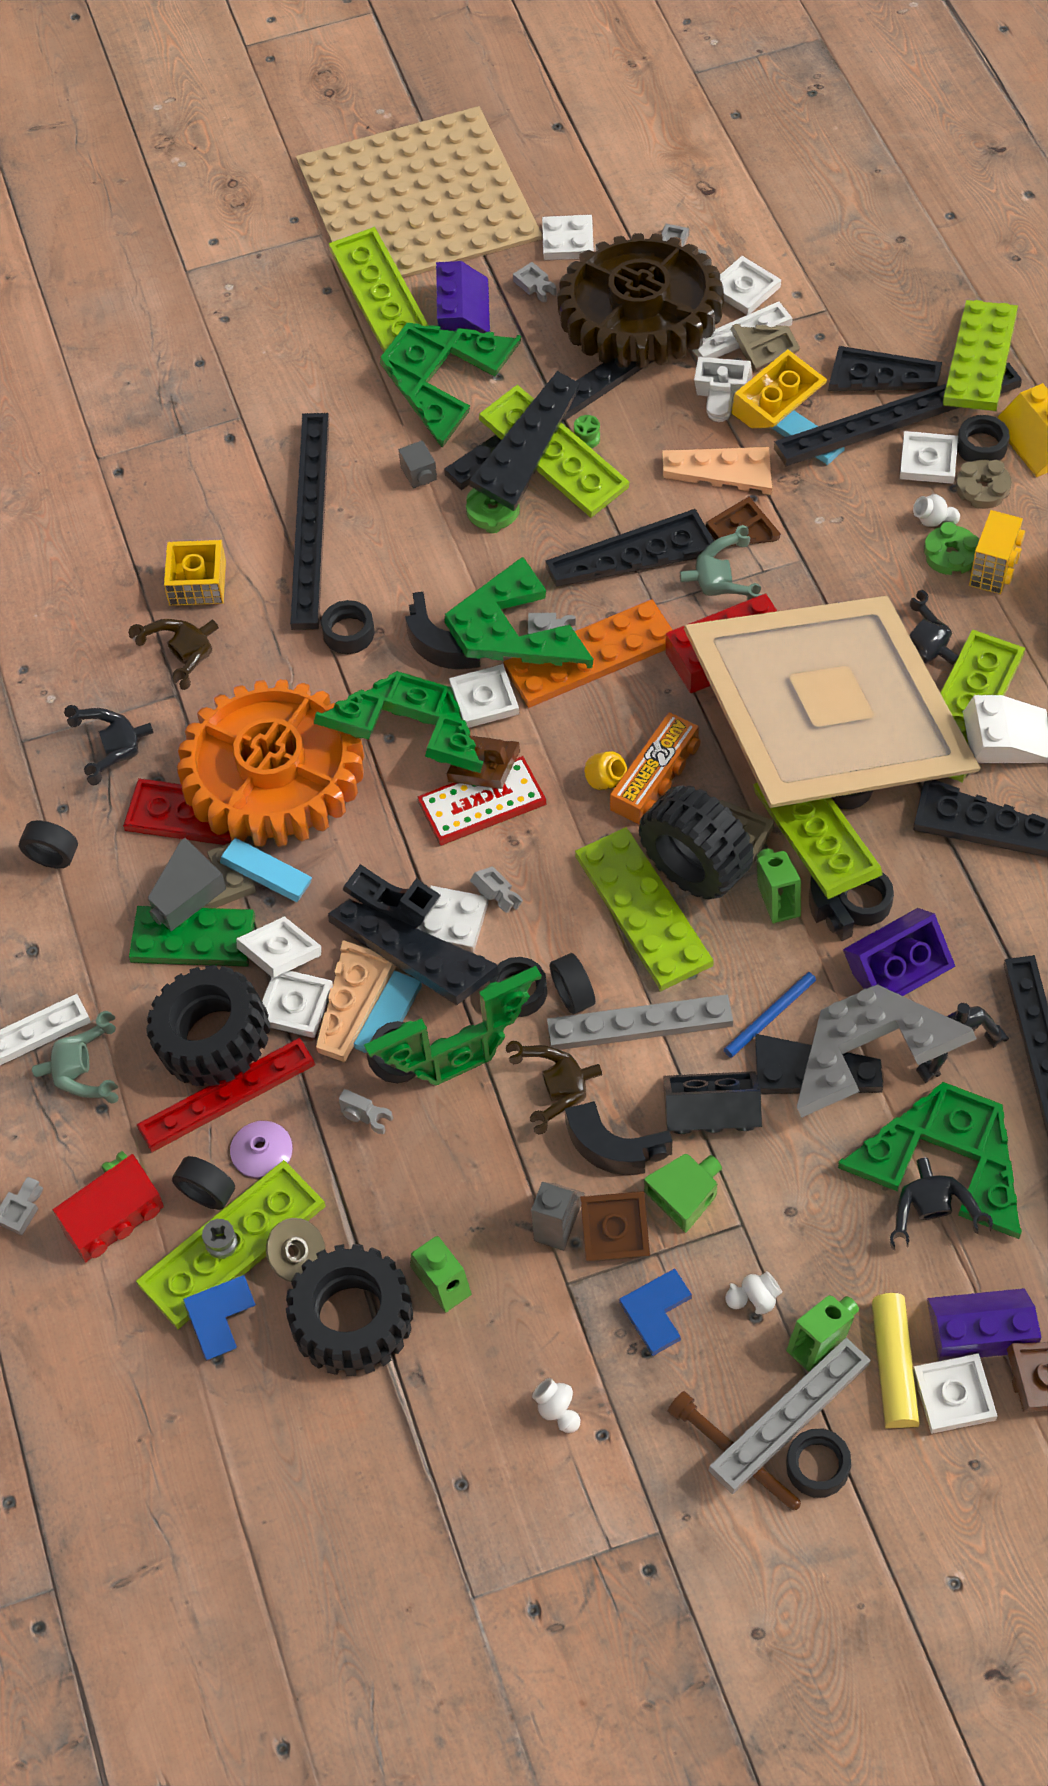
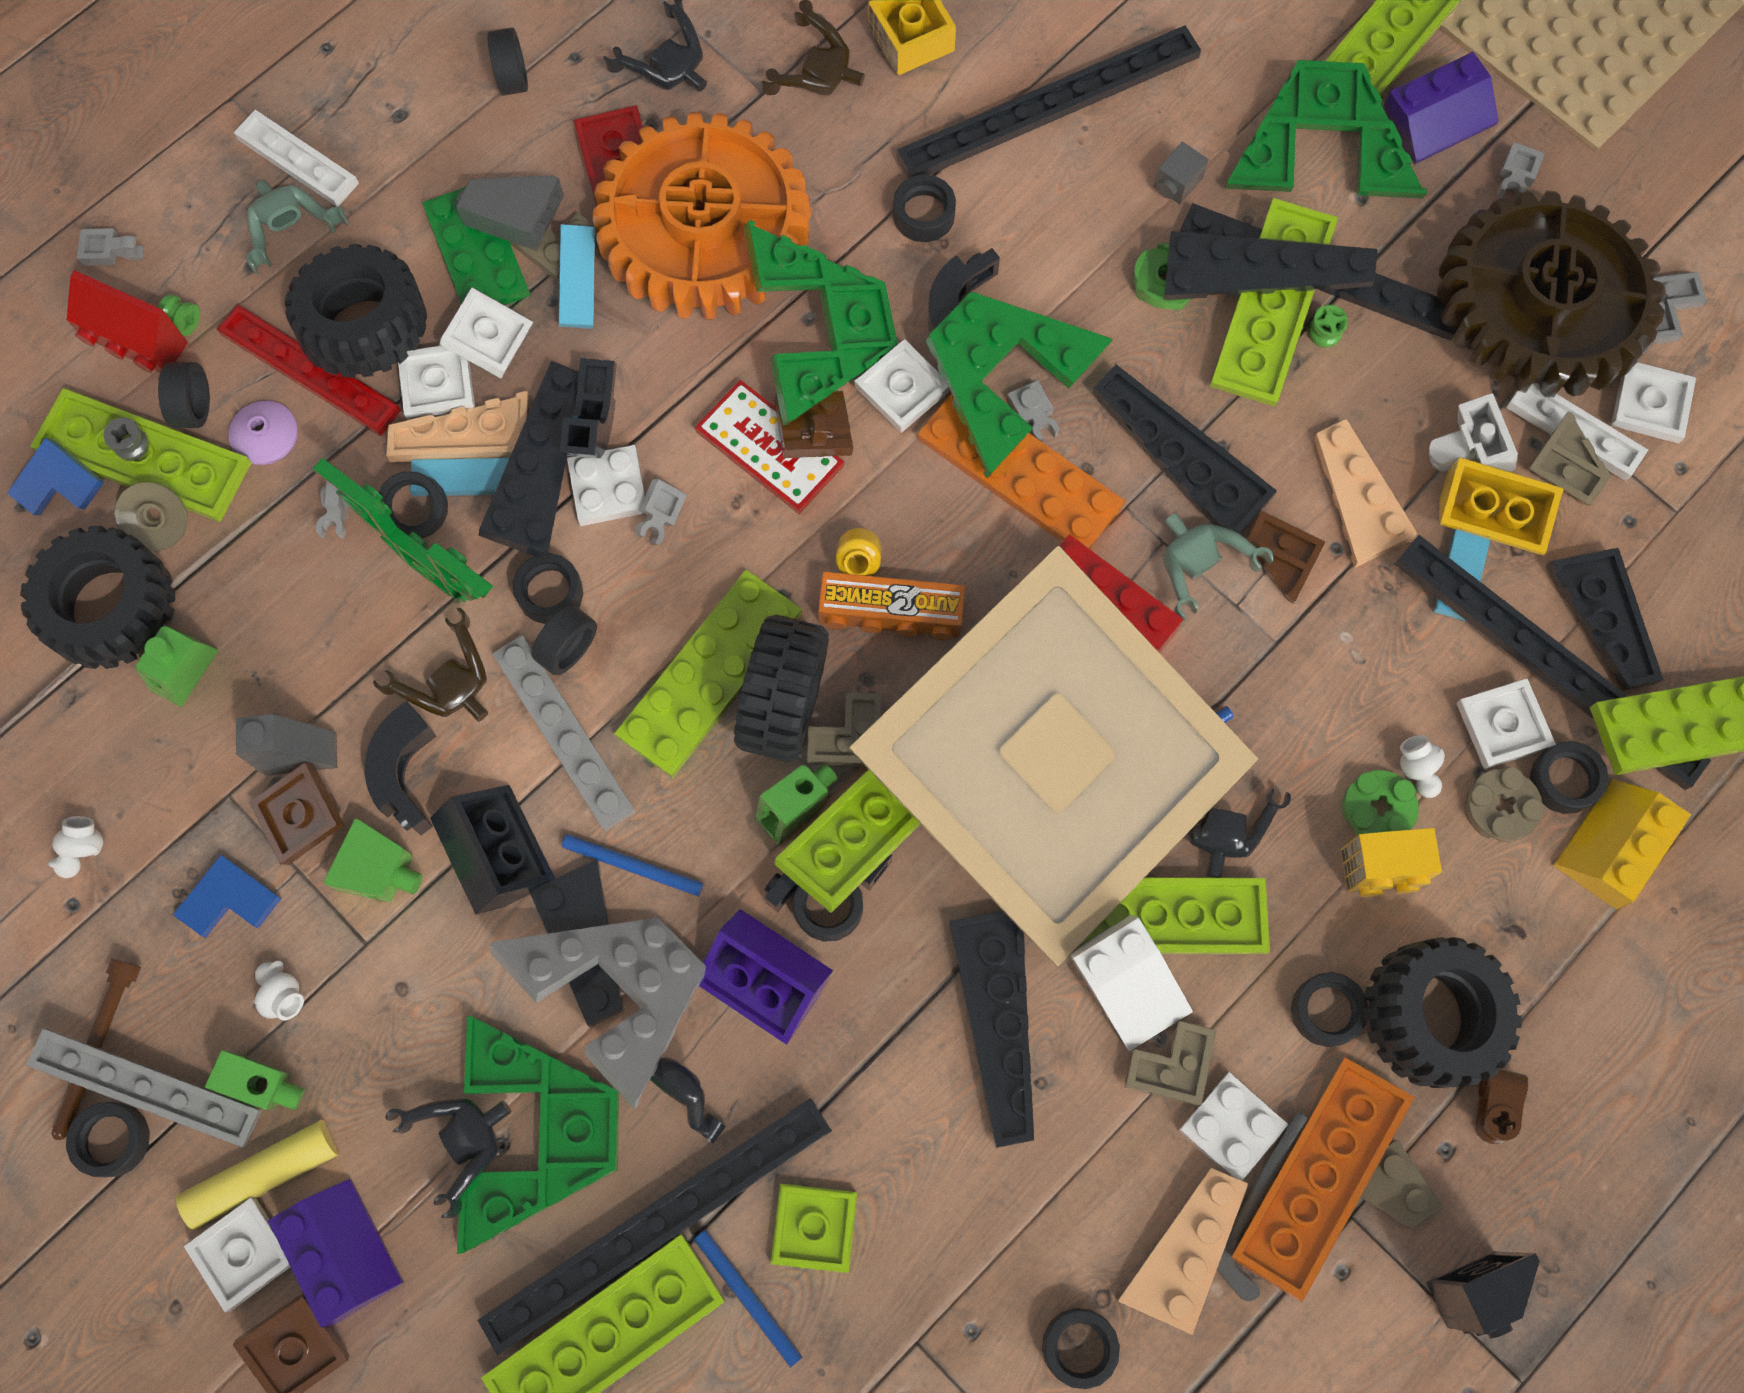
camera: 60 degrees right, 15 degrees up
(566, 236) = (1612, 175): white plate -> none

